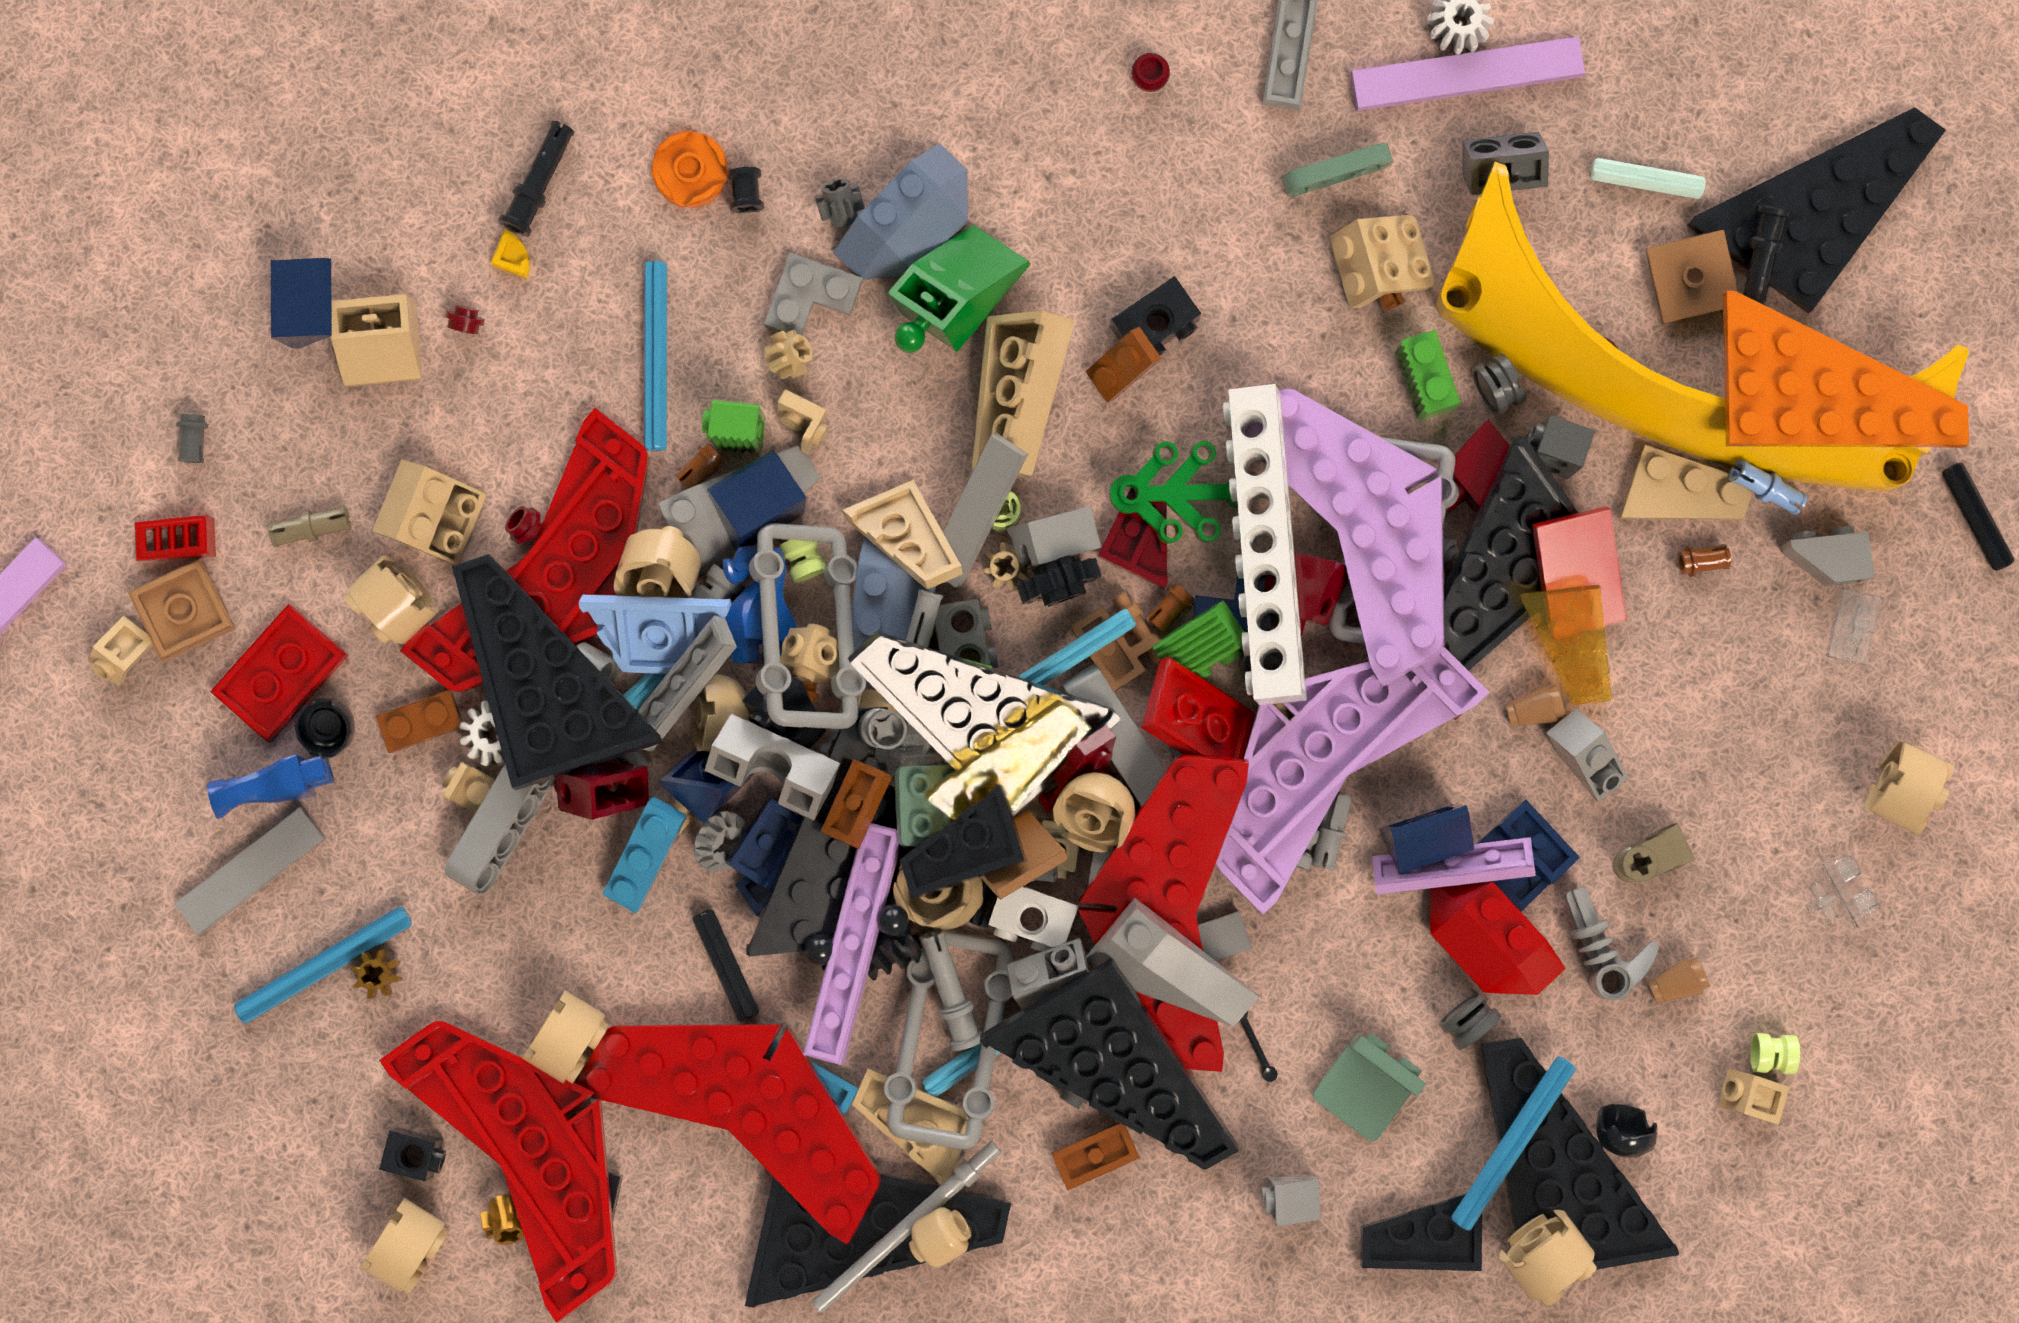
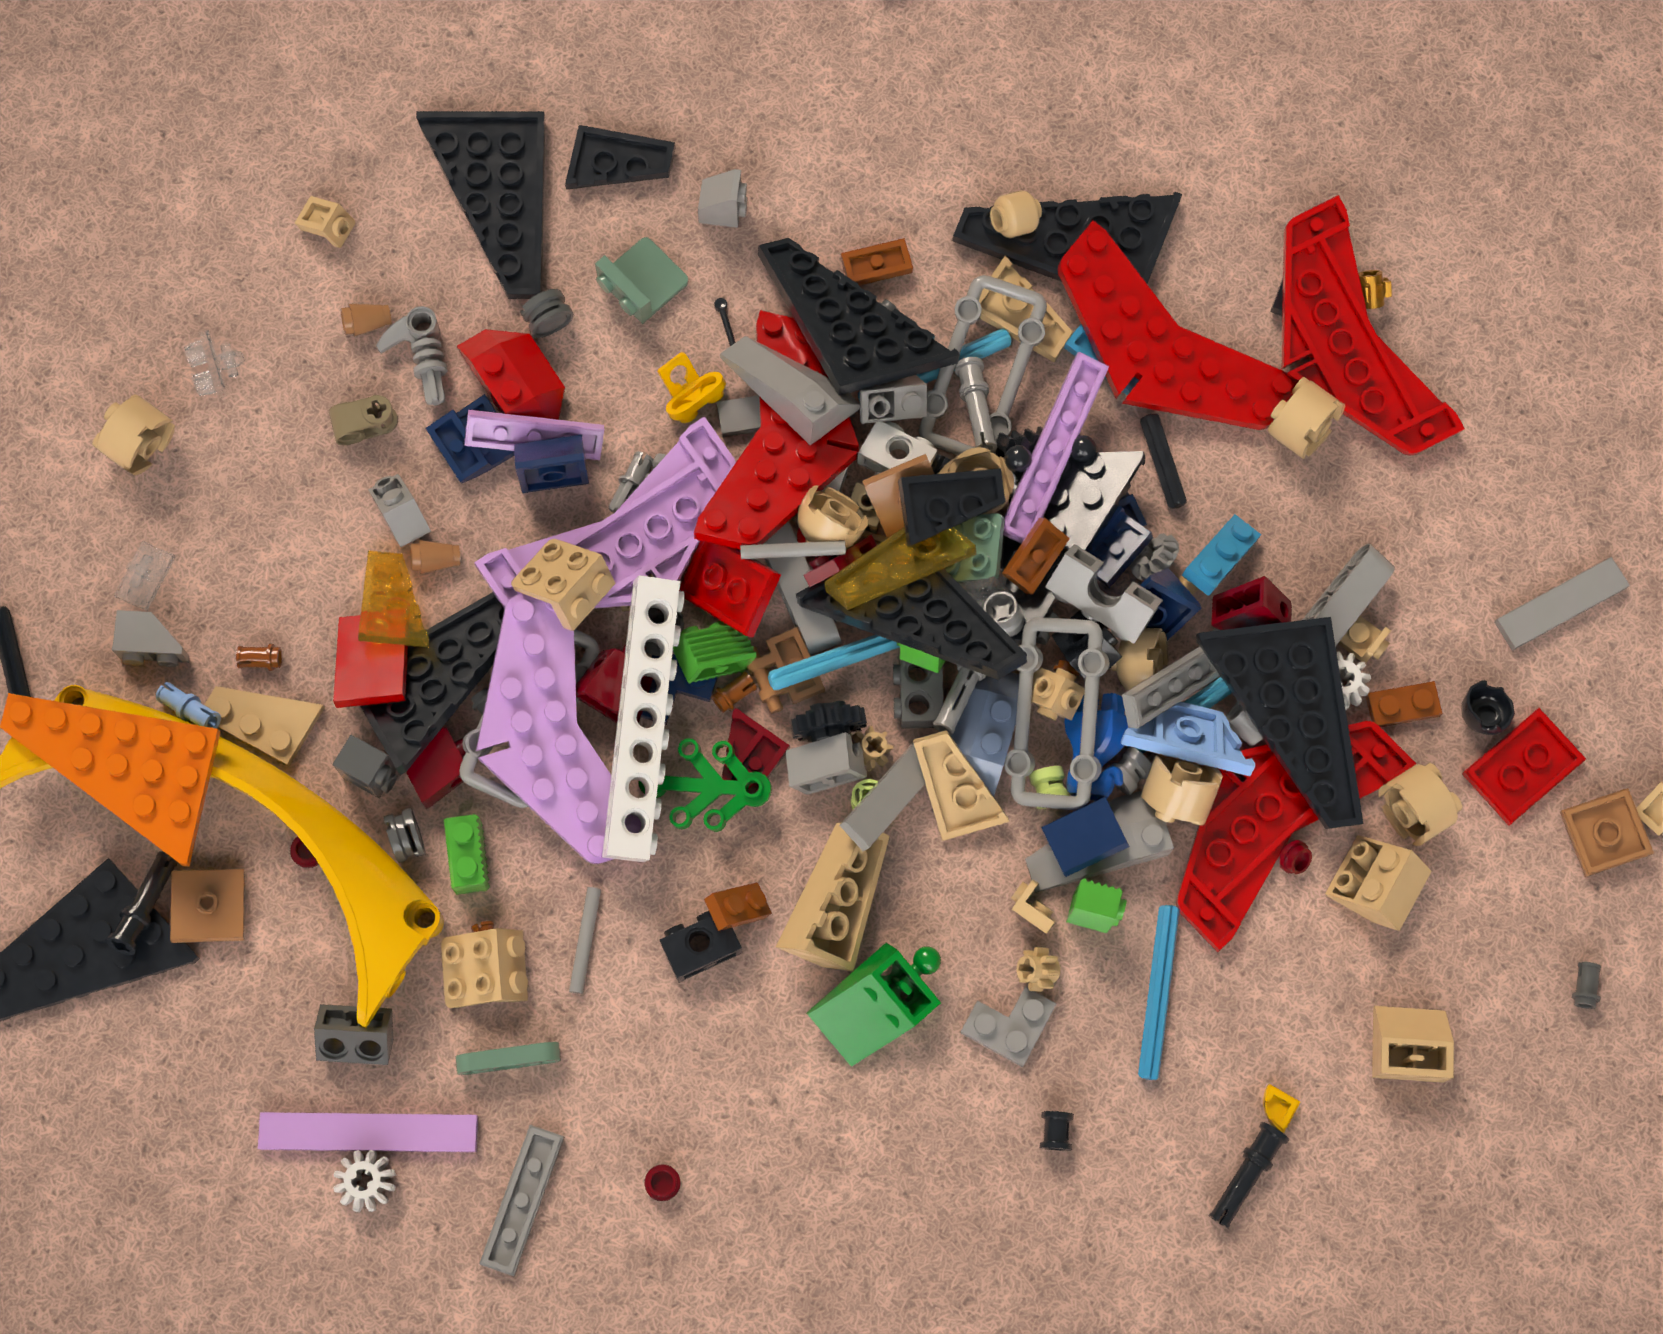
camera: 175 degrees left, 10 degrees down
(205, 538) = (1581, 904): red slope -> none
(279, 782) = (1531, 664): blue hips -> none
(301, 301) = (1478, 1085): dark blue slope -> none
(309, 526) = (1487, 889): dark tan pin -> none
(323, 965) = (1505, 516): dark azure axle -> none
(386, 978) = (1459, 507): pearl gold gear -> none
(395, 1154) = (1455, 346): black brick -> none
(403, 1245) = (1456, 279): tan brick -> none
(464, 319) = (1329, 1051): dark red plate -> none
(698, 179) = (1095, 1167): orange tile -> none
(700, 466) = (1131, 883): dark orange pin -> none
(839, 202) = (971, 1102): dark grey gear -> none
(908, 217) = (907, 1078): sand blue wedge -> none
(965, 1174) = (988, 260): light grey bar -> none
(1133, 760) = (793, 549): none -> light grey bar
(1281, 310) = (585, 940): none -> light grey bar
(1281, 952) = (694, 393): none -> yellow bracket
(1384, 680) = (567, 579): none -> tan bracket
(1513, 1143) = (531, 213): dark azure axle -> none
(1548, 1257) = (524, 117): tan brick -> none
(1625, 1131) = (437, 210): black hair -> none
(1647, 178) = (225, 1005): light aqua axle -> none
(1775, 1053) = (300, 249): yellowish green wheel -> none

